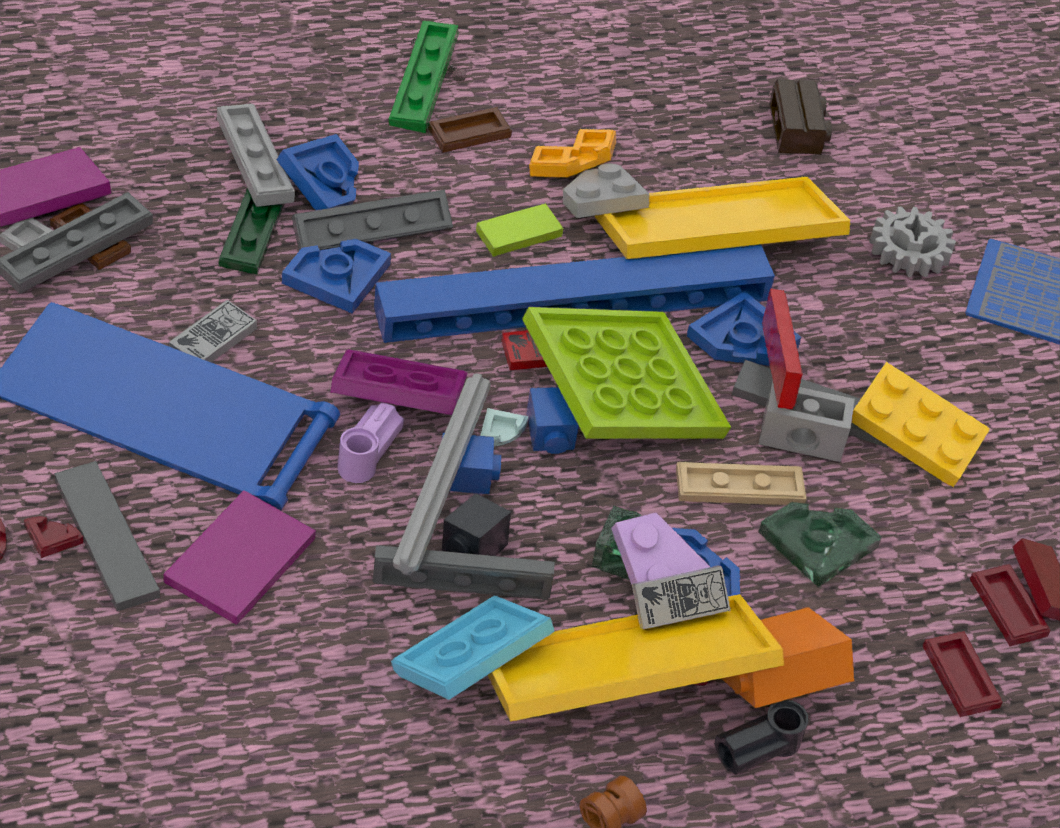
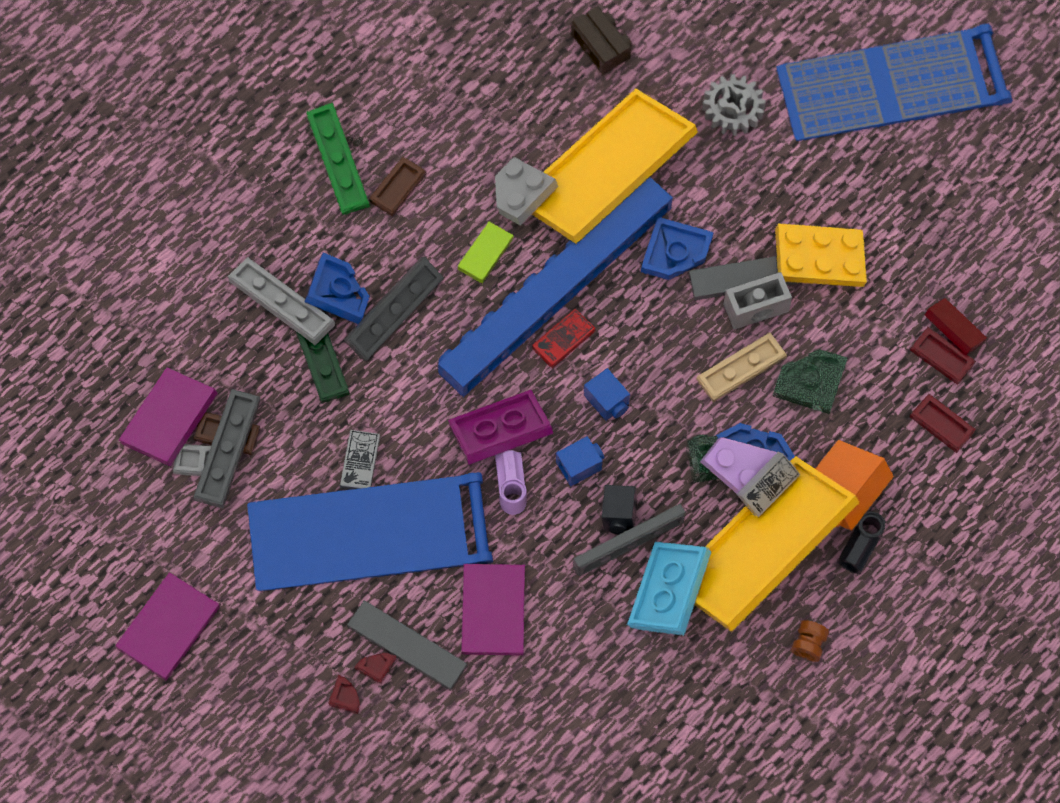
camera: 25 degrees left, 20 degrees up
(337, 274) = (401, 363): blue plate -> none
(441, 475) = (579, 484): light grey axle -> none
(503, 426) = (577, 417): light aqua tile -> none
(589, 150) = (480, 175): light orange tile -> none
(625, 374) = (631, 335): lime plate -> none
(782, 349) = (718, 263): tile -> none

